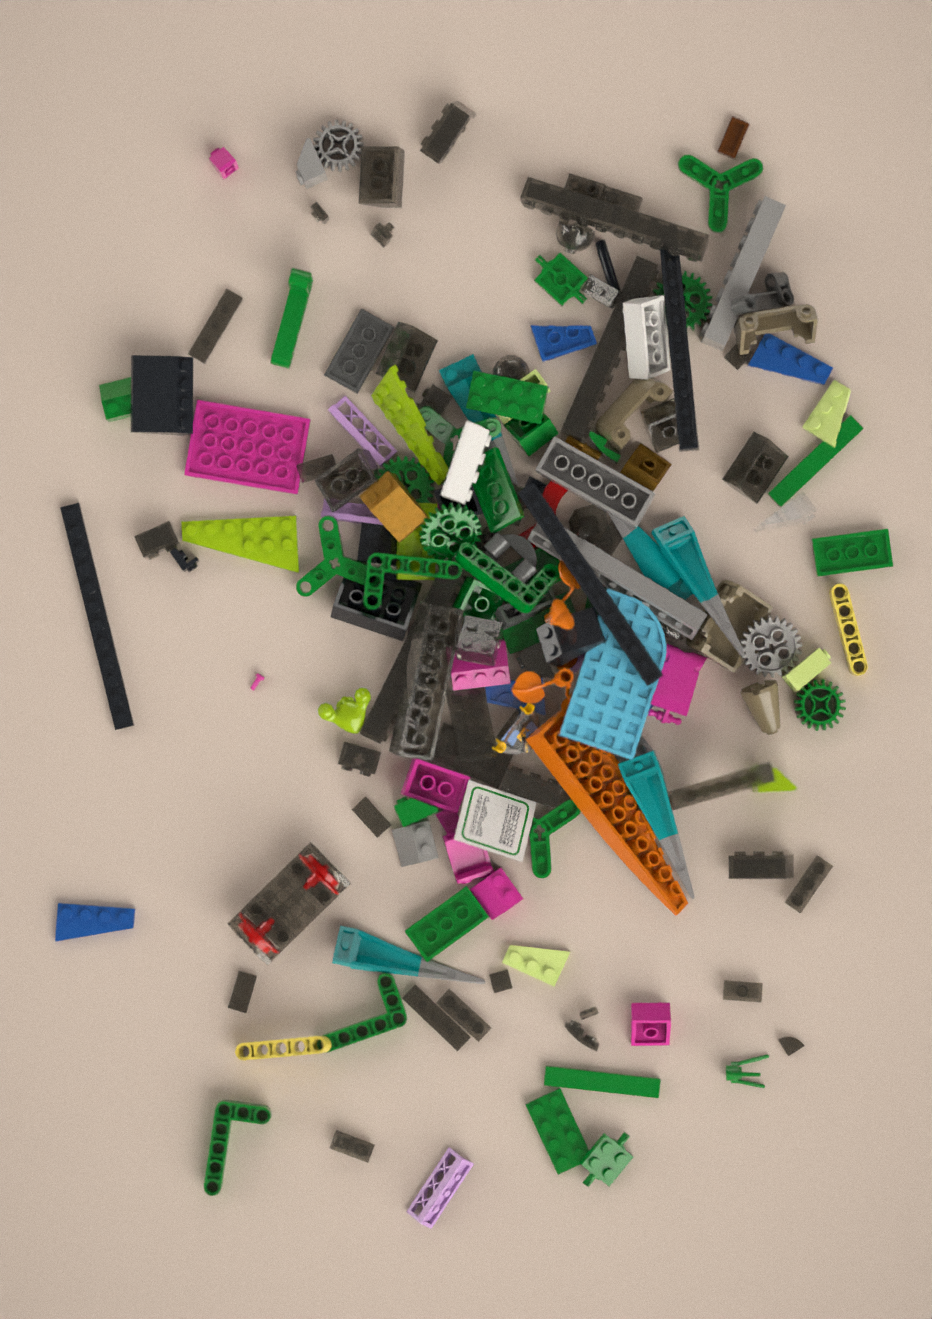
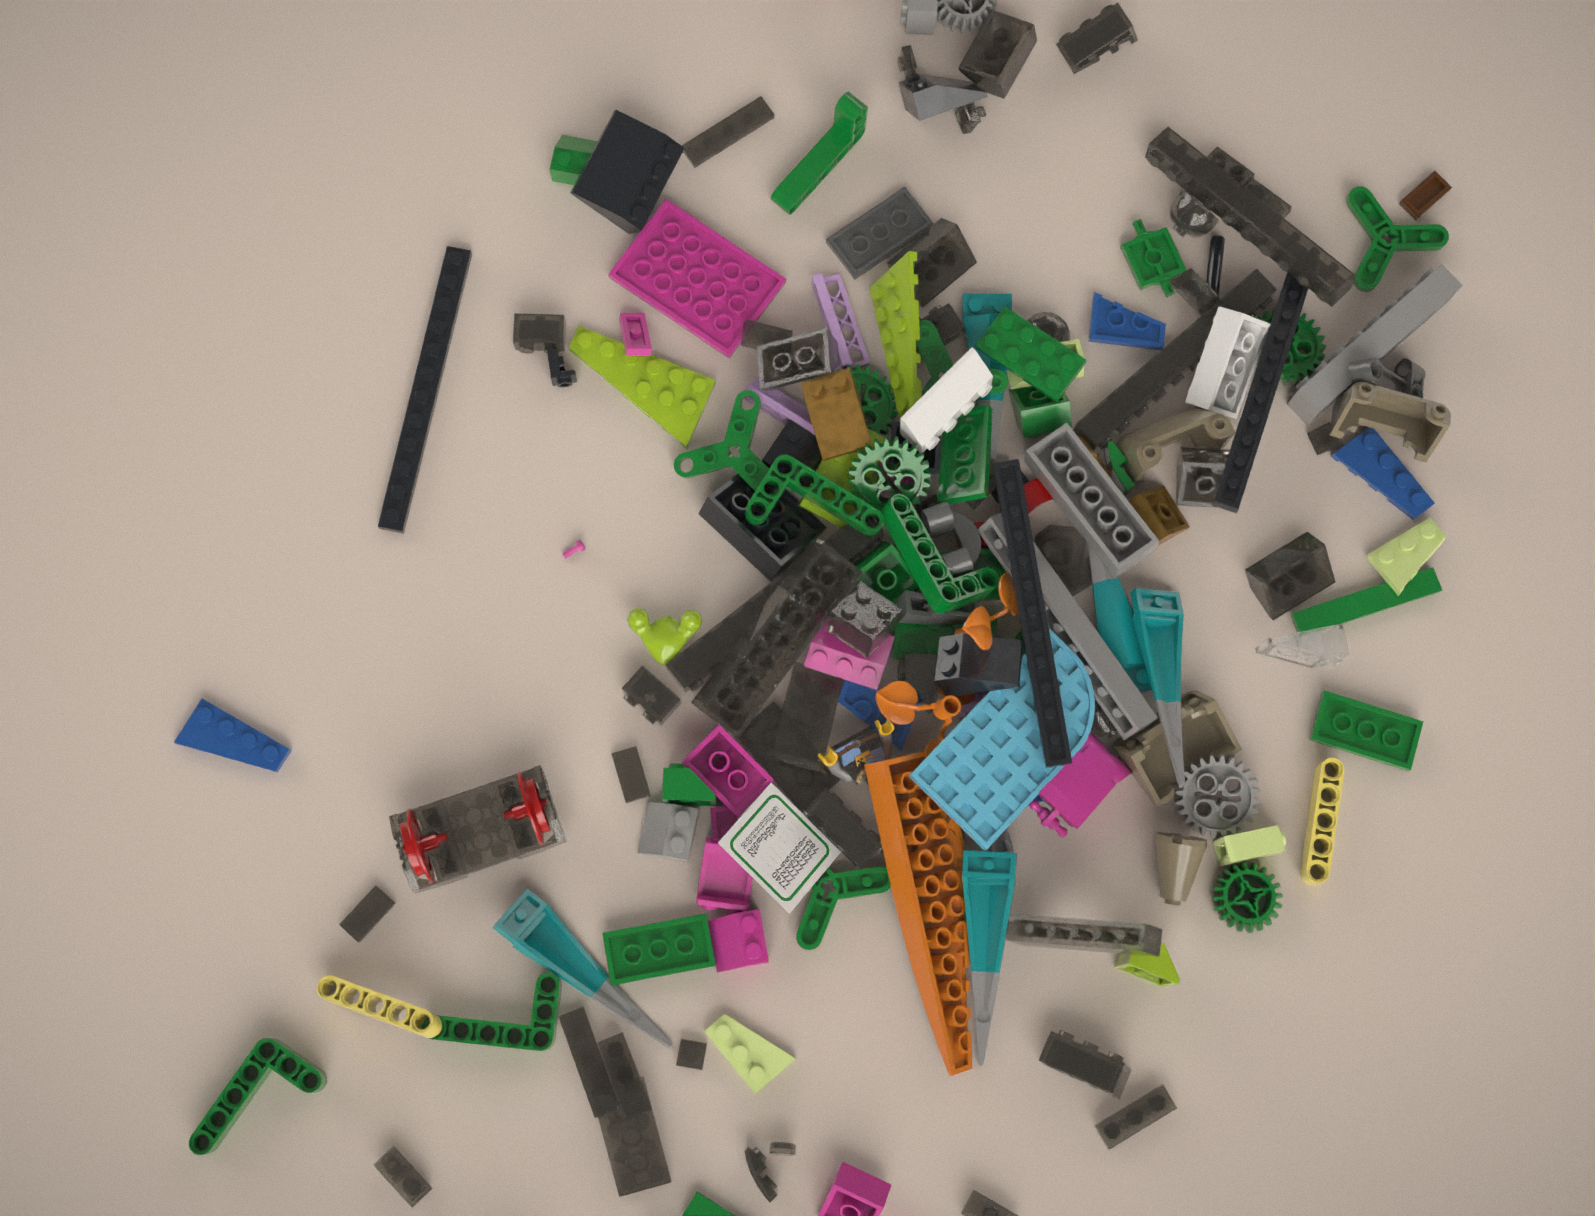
camera: 25 degrees right, 10 degrees down
(224, 510) = (635, 334): none -> dark pink plate
(353, 231) = (933, 95): none -> slope
(487, 1051) = (631, 1136): none -> clear smoke plate

